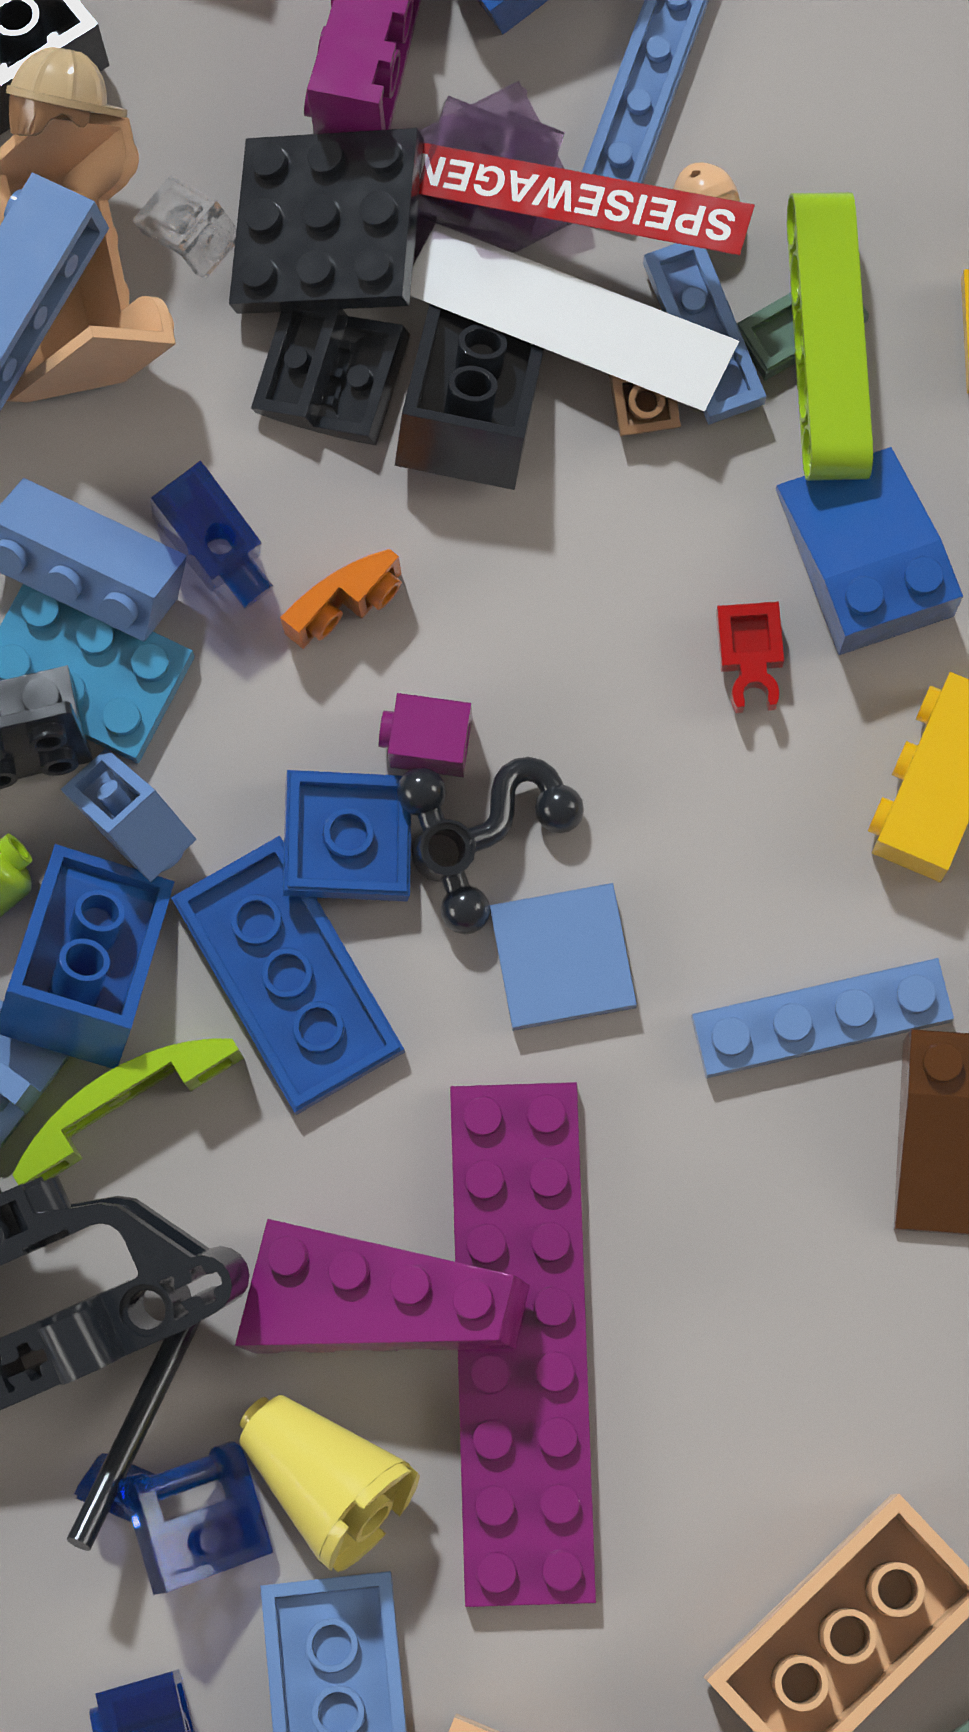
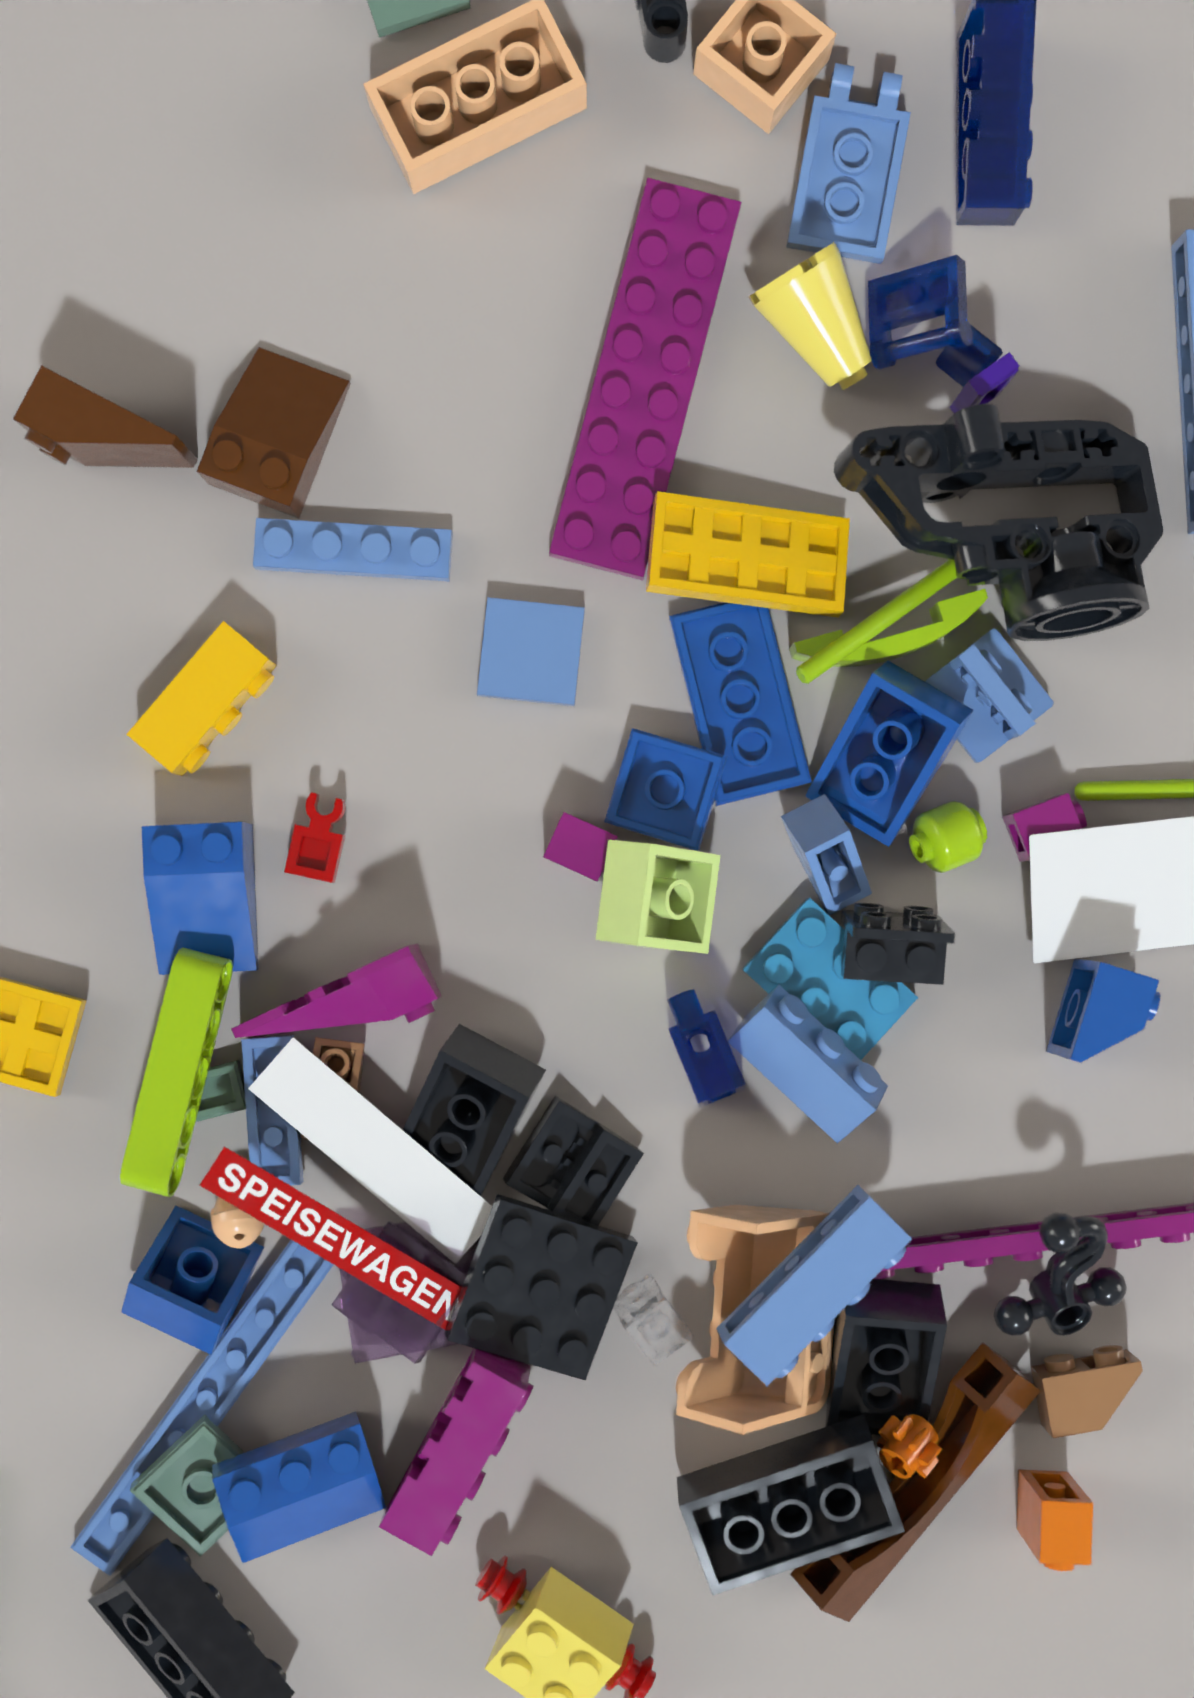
camera: 170 degrees left, 10 degrees up
(54, 85) = (727, 1451): tan piece -> none
(85, 1440) = (987, 384): none -> dark purple tile
(129, 1439) = (964, 366): black bar -> none
(138, 1110) = (876, 622): none -> lime piece
(318, 693) = (657, 896): none -> yellowish green brick
(326, 1146) = (748, 554): none -> yellow plate
(353, 1294) = (746, 430): magenta wedge -> none
(357, 586) = (599, 981): orange slope -> none
(423, 794) = (600, 799): black piece -> none
(635, 488) = (373, 993): none -> magenta wedge
(737, 114) = (190, 1281): none -> blue slope

